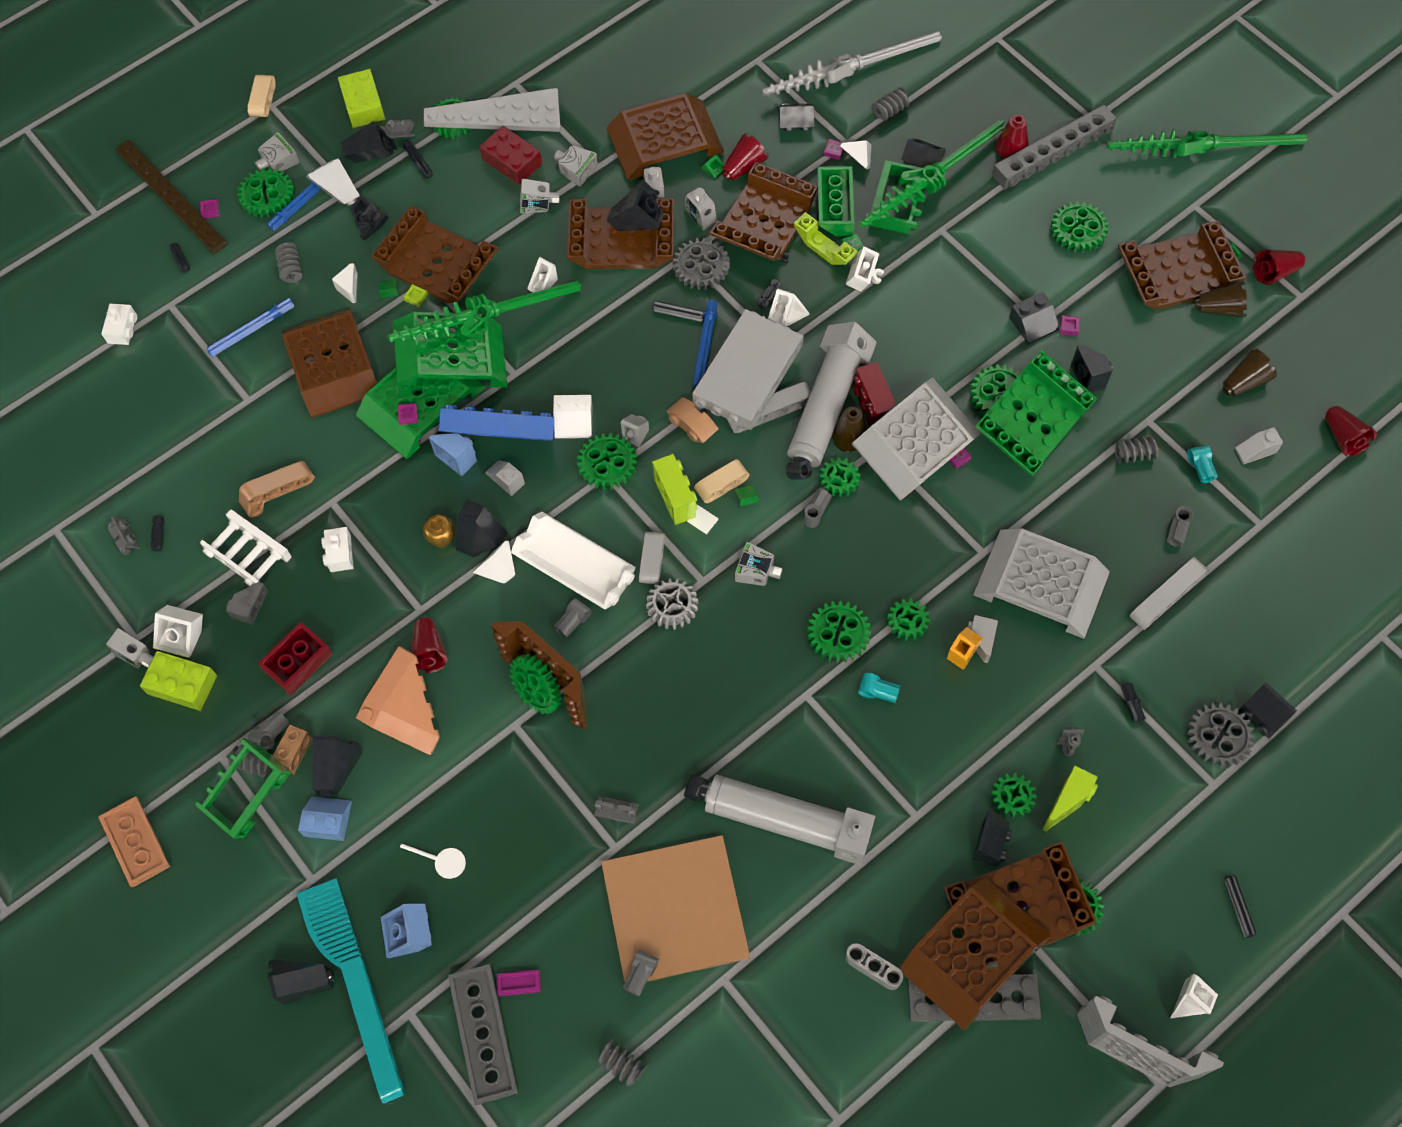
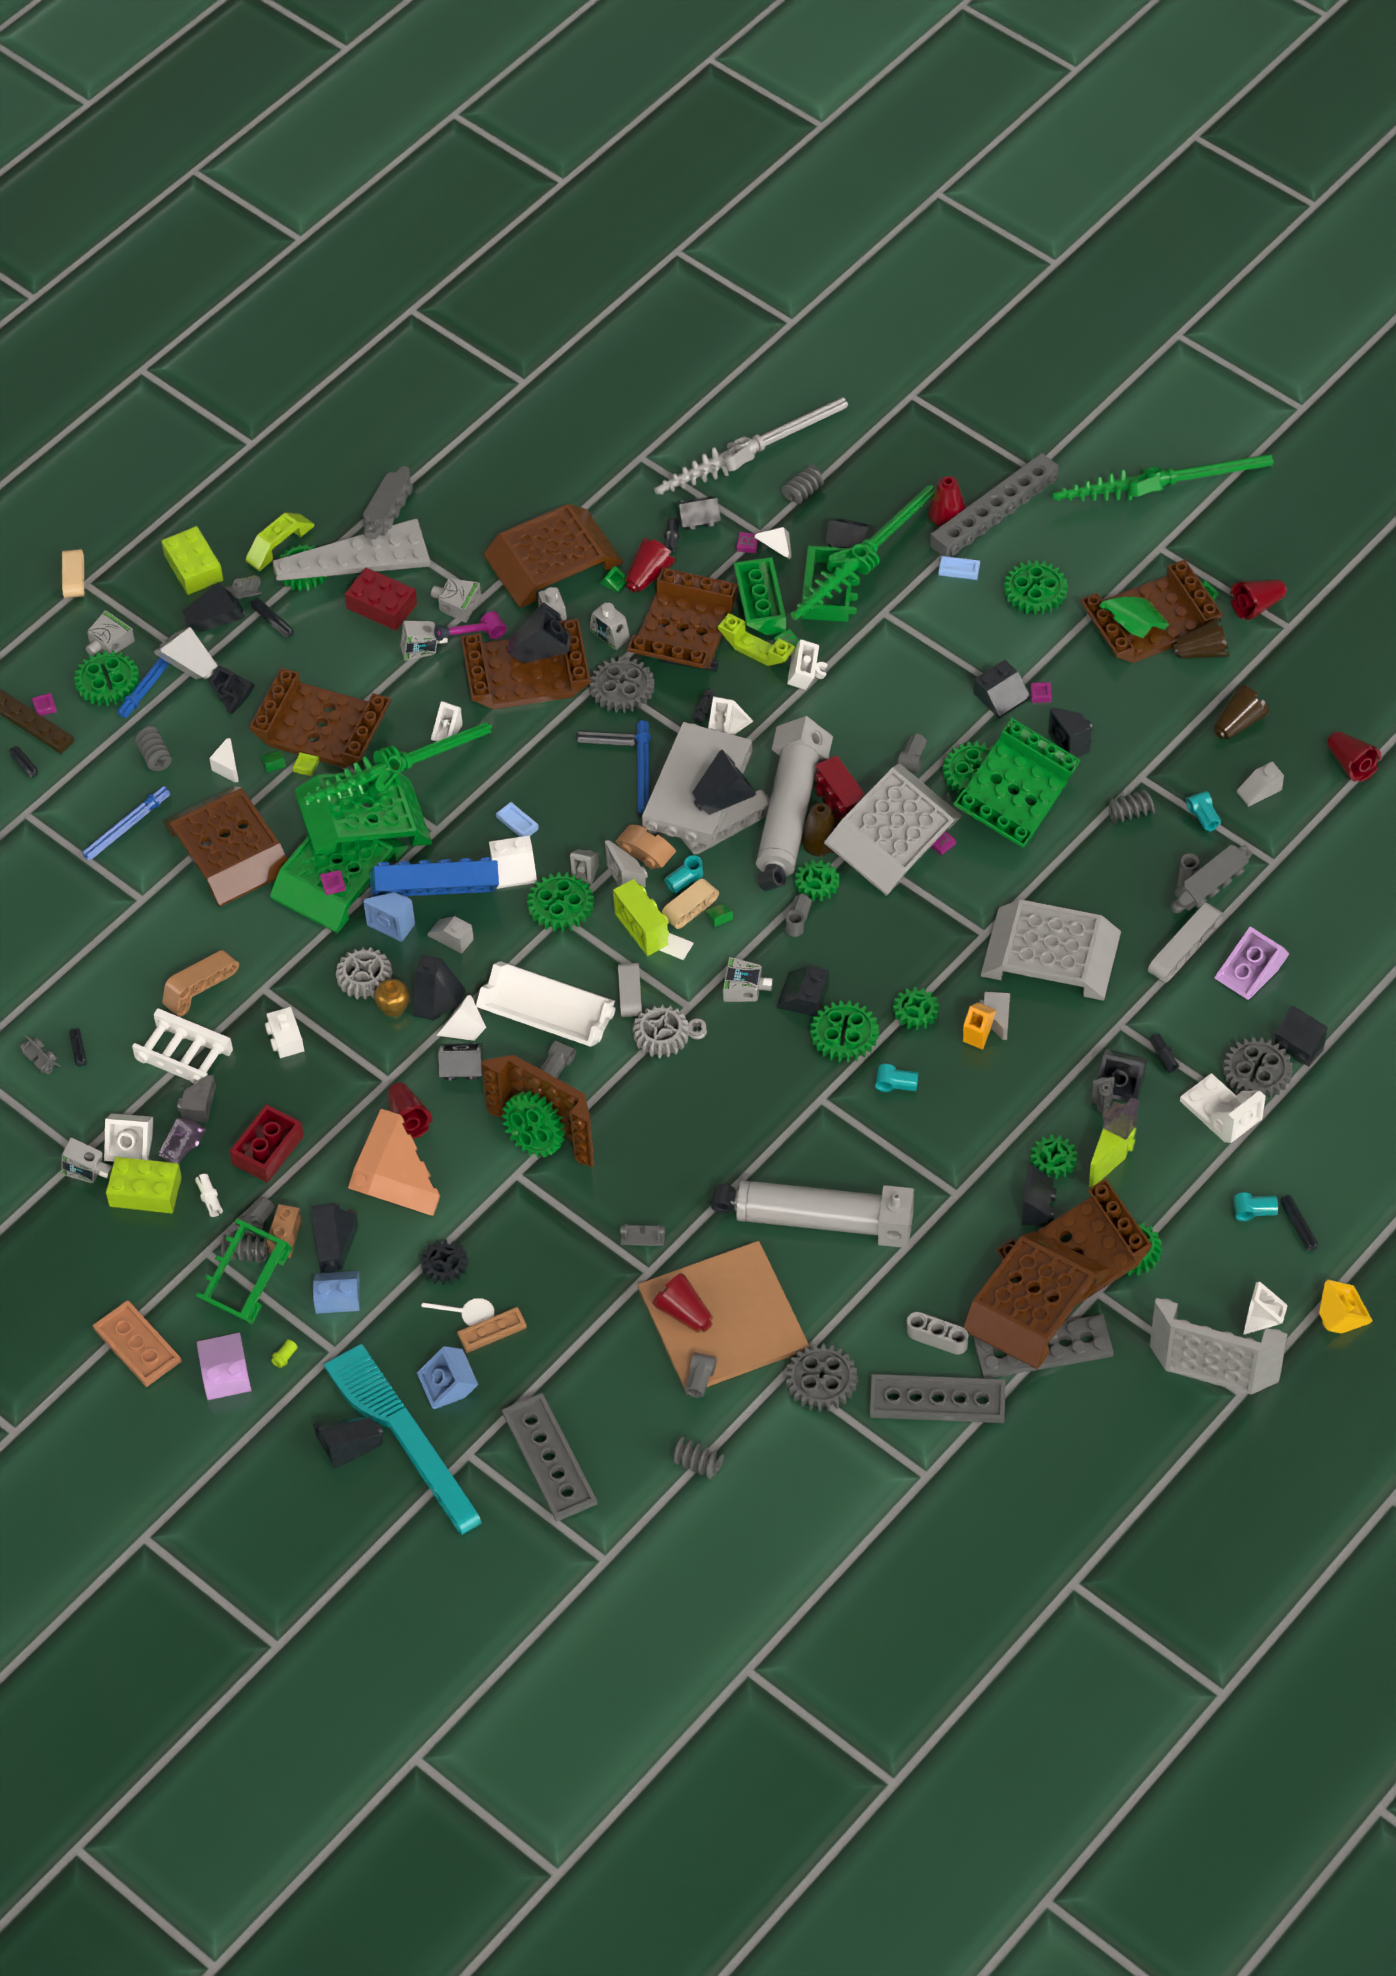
camera: 10 degrees left, 10 degrees down
(205, 878) = (223, 1366): none -> lavender slope
(222, 640) = (181, 1139): none -> clear purple arch
(234, 700) = (209, 1195): none -> white pin
(263, 876) = (285, 1352): none -> lime pin
(419, 807) = (444, 1262): none -> black gear
(427, 494) = (365, 967): none -> light grey gear
(433, 85) = (261, 550): none -> lime slope
(458, 884) = (491, 1329): none -> medium nougat tile
(487, 602) = (460, 1060): none -> slope
(518, 983) = (575, 1408): magenta tile -> none
(533, 71) = (387, 503): none -> dark grey hinge
(585, 377) = (517, 820): none -> light blue tile
(599, 191) = (489, 623): none -> magenta piece
(638, 897) = (684, 1304): none -> dark red cone
(670, 438) = (623, 866): none -> light grey slope
(711, 606) = (695, 1023): none -> light grey bush
(721, 453) = (685, 874): none -> teal piece
(750, 1014) = (822, 1360): none -> dark grey gear
(767, 377) = (721, 785): none -> black slope
(770, 133) = (672, 534): none -> black axle
(809, 584) = (804, 990): none -> black slope
(874, 1028) = (945, 1410): none -> dark grey plate
(944, 370) = (912, 755): none -> dark grey piece
(1014, 198) = (959, 567): none -> light blue tile
(1086, 778) = (1121, 1118): none -> arch
(1092, 716) = (1127, 1073): none -> black slope
(1166, 266) = (1135, 614): none -> green slope
(1181, 773) = (1222, 1110): none -> white bracket
(1193, 882) = (1248, 1207): none -> teal piece
(1201, 533) = (1210, 877): none -> dark grey hinge
(1227, 626) = (1251, 963): none -> lavender slope
(1273, 1011) = (1342, 1308): none -> yellow slope

